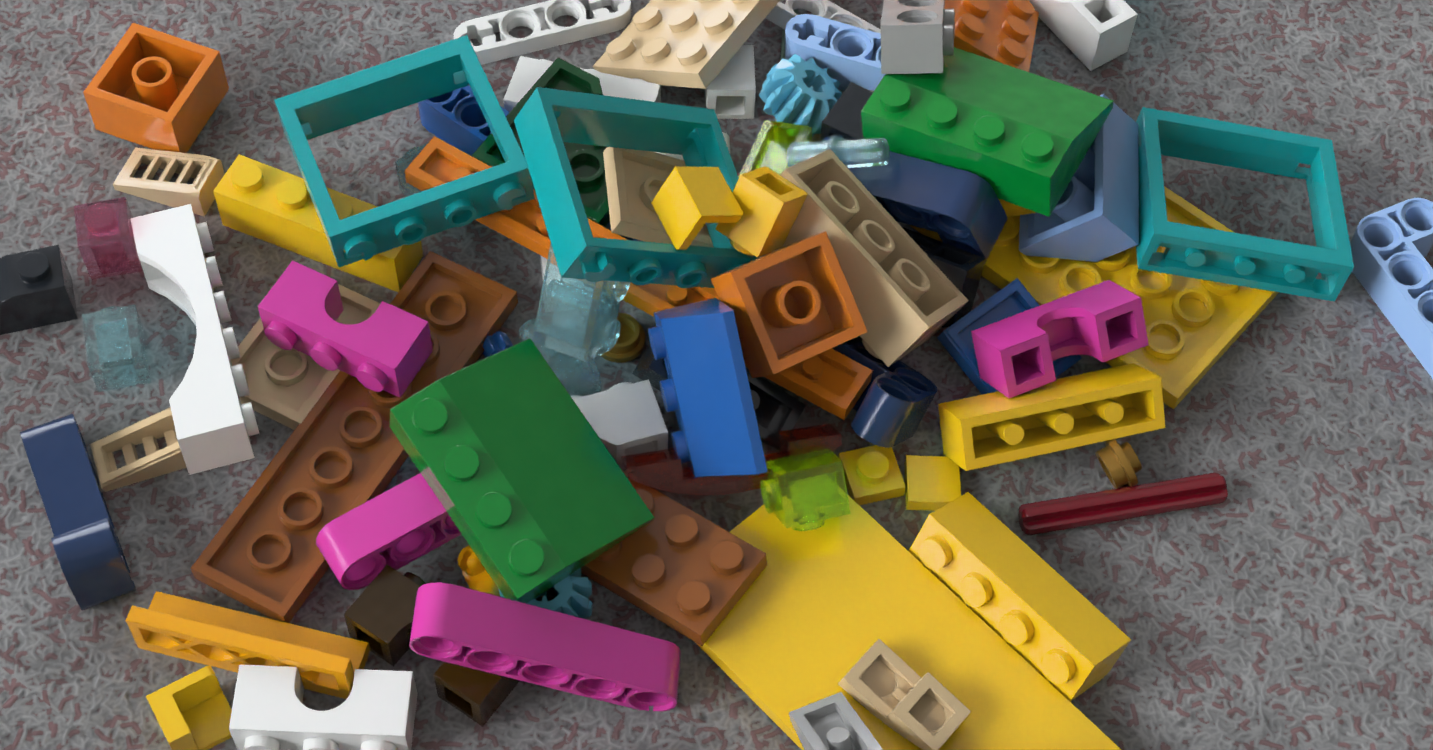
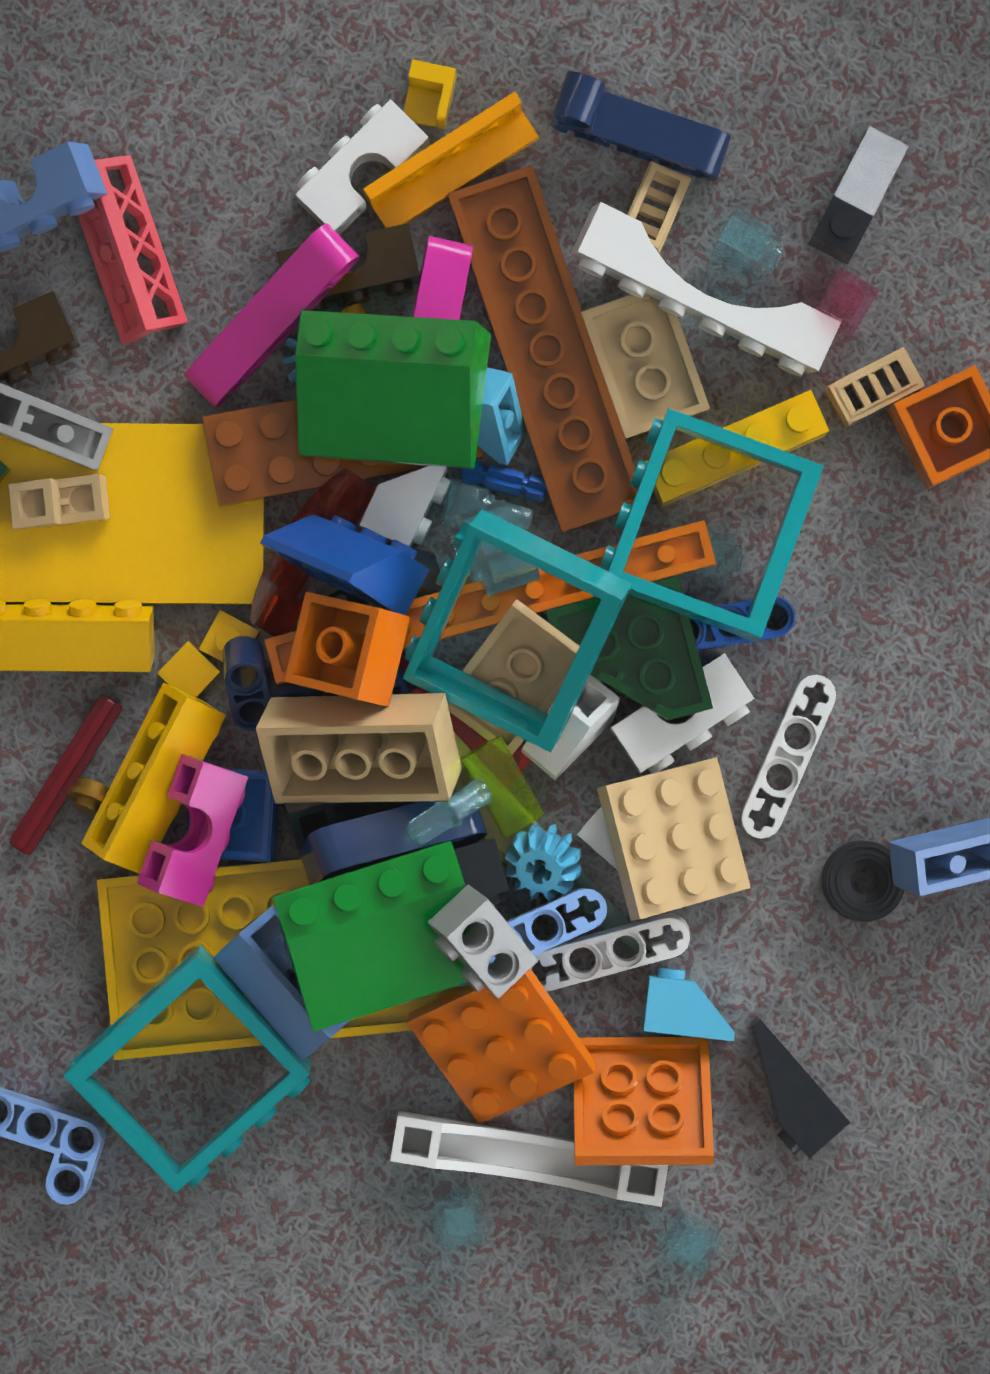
camera: 135 degrees right, 30 degrees up
(379, 352) = (653, 368): dark pink arch -> none
(692, 199) = (452, 638): yellow panel -> none
(768, 209) = (420, 686): yellow brick -> none
(806, 489) = (236, 565): clear neon green brick -> none

